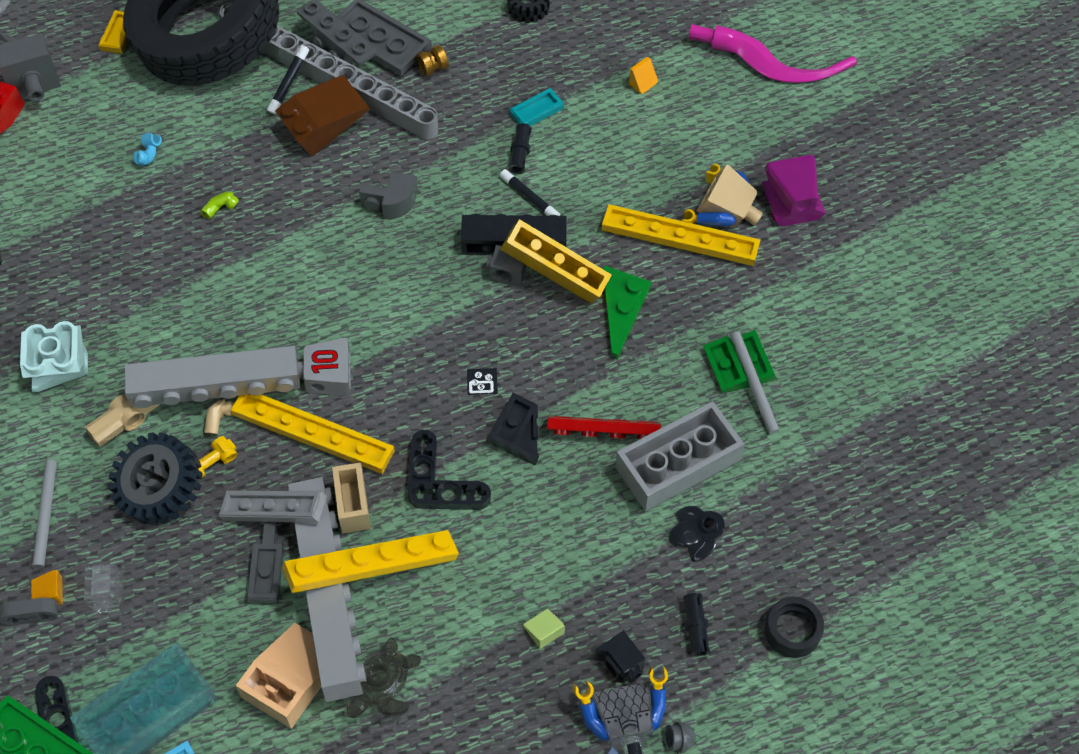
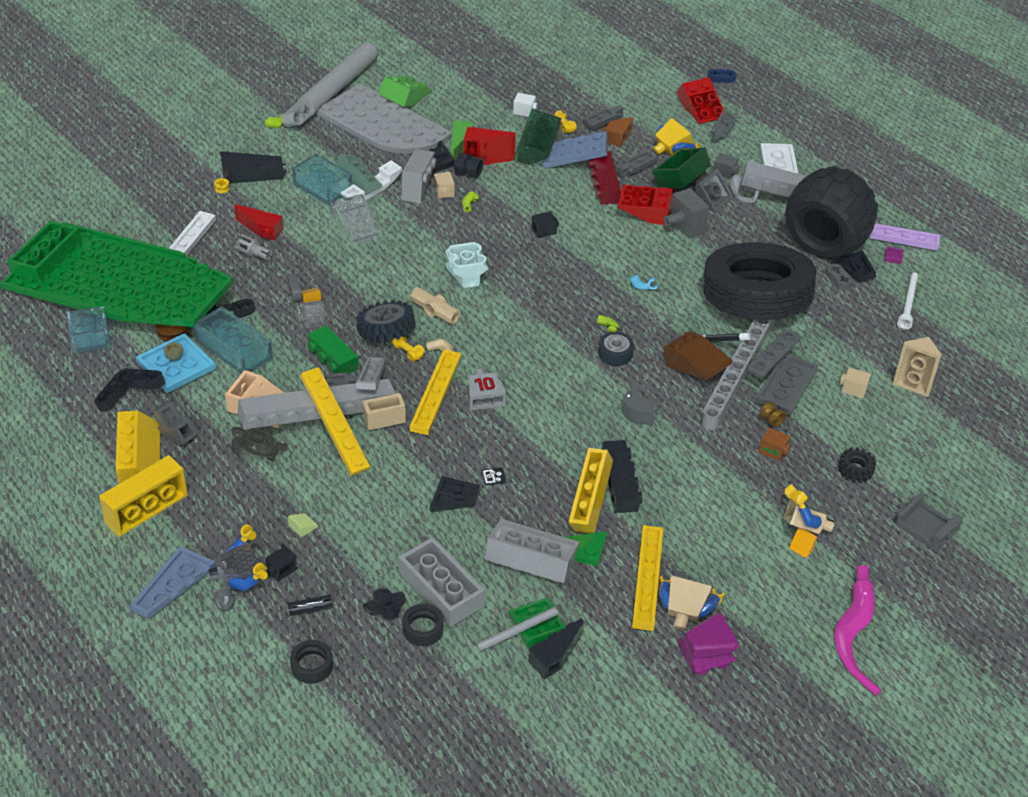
camera: 80 degrees right, 15 degrees down
(44, 514) = (361, 285): light grey bar -> none
(198, 562) = (332, 351): none -> green brick
(212, 377) = (459, 331): light grey brick -> none
(276, 201) = (616, 348): none -> black wheel
(428, 483) = (405, 453): black beam -> none
(484, 69) = (775, 444): none -> dark orange brick
(520, 148) = (704, 473): black pin -> none
(528, 193) = (664, 485): black bar -> none
(537, 108) = (750, 482): teal tile -> none
(591, 426) = (463, 538): red plate -> none
(611, 62) = (804, 515): none -> torso
(634, 347) = (531, 550): none -> light grey slope
(740, 468) = (423, 611): none -> black tyre
(794, 347) = (554, 651): none -> black slope

